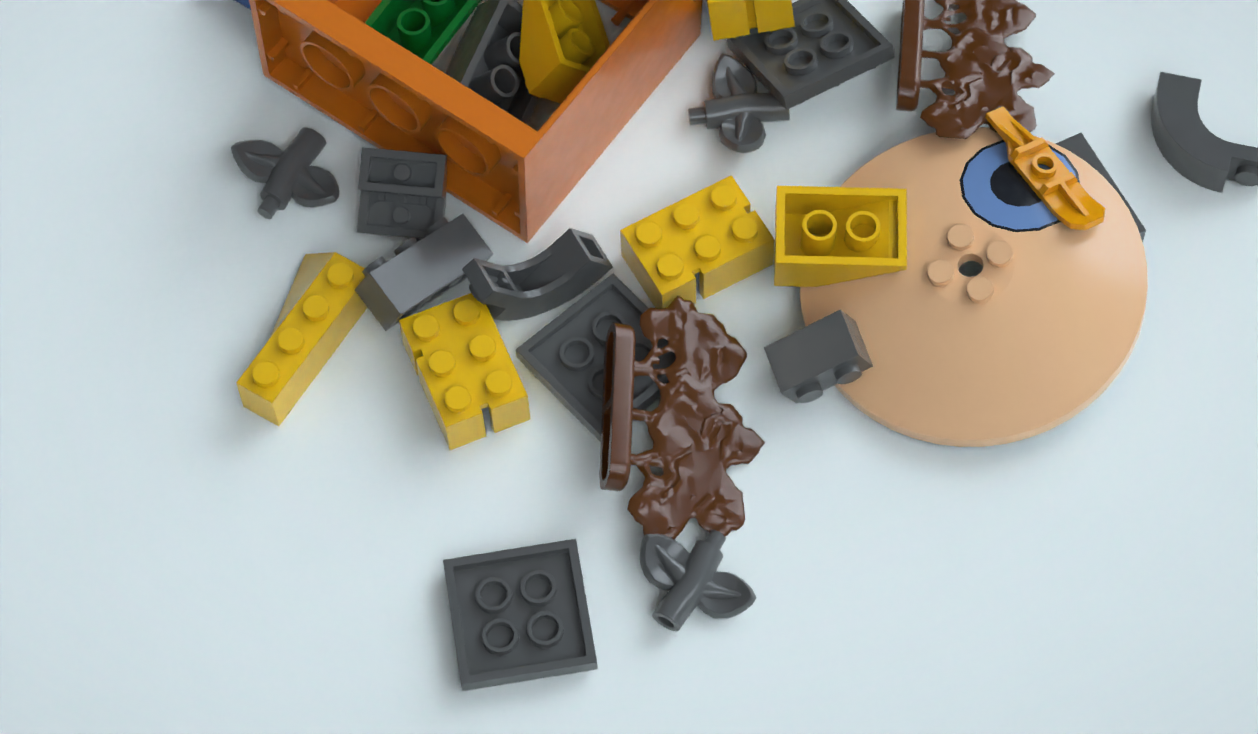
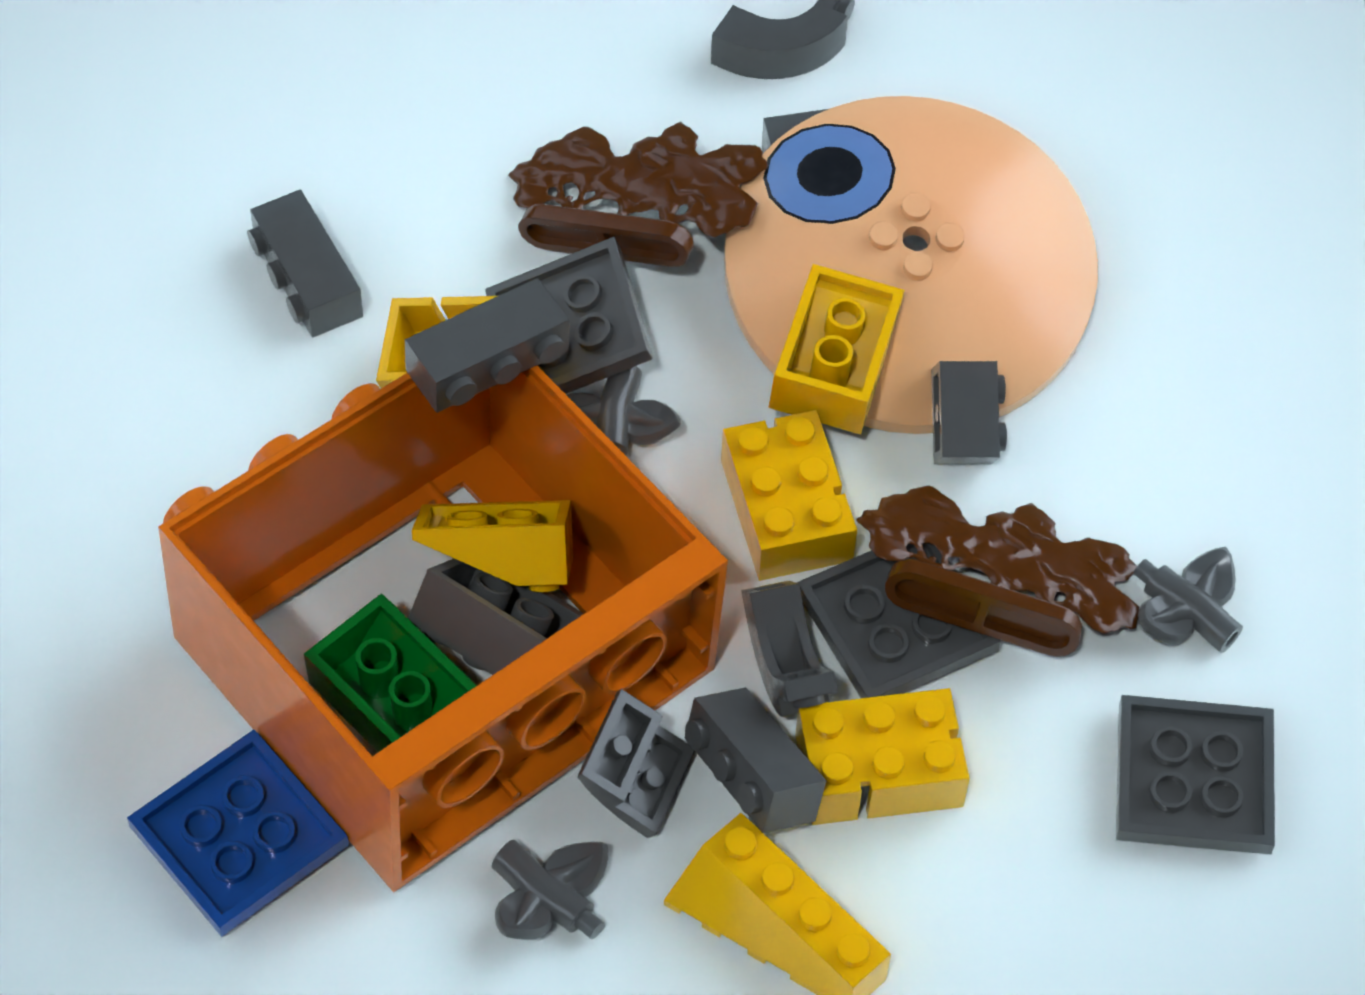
camera: 80 degrees left, 5 degrees down
(1055, 186) = (844, 143): light orange piece -> none

